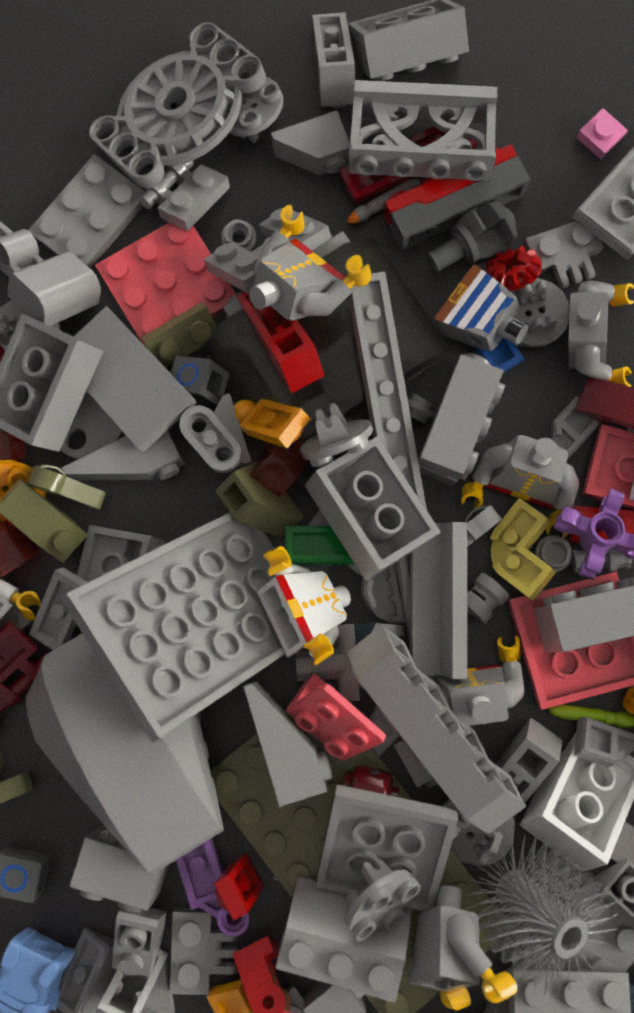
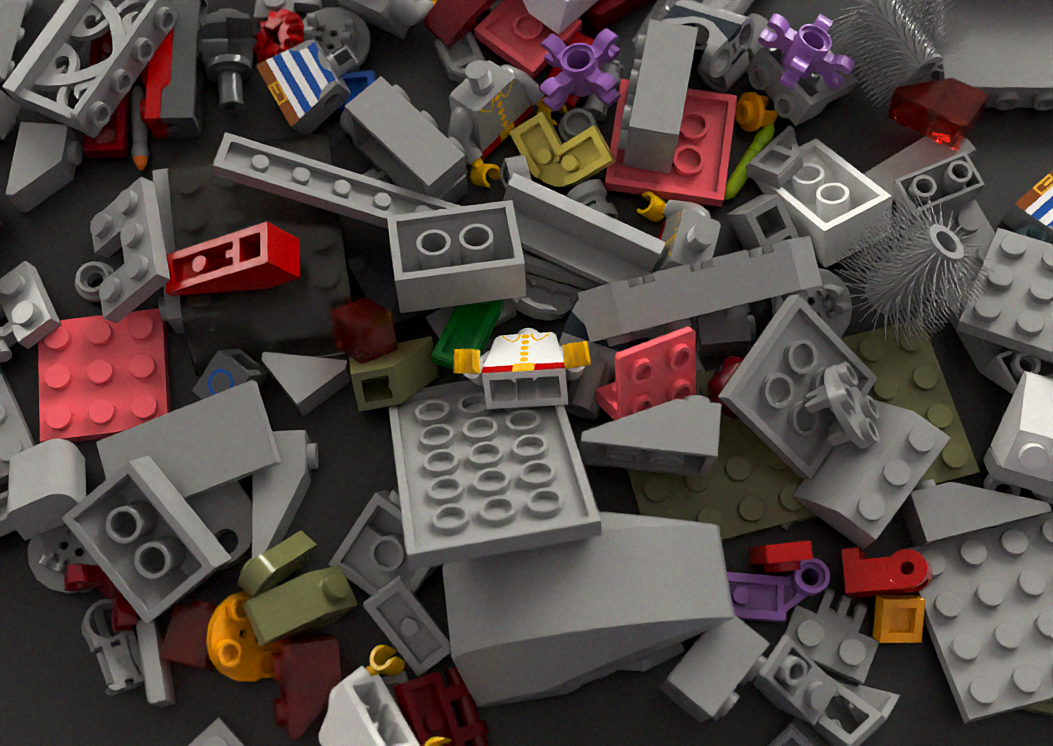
camera: 70 degrees left, 10 degrees down
(181, 335) = (169, 375): olive plate -> none
(211, 440) = (304, 381): light grey plate -> none
(271, 421) = (317, 313): light orange plate -> none
(297, 279) = (188, 216): light grey torso -> none
(335, 436) = (366, 256): light grey plate -> none
(450, 955) = (921, 362): light grey torso -> none

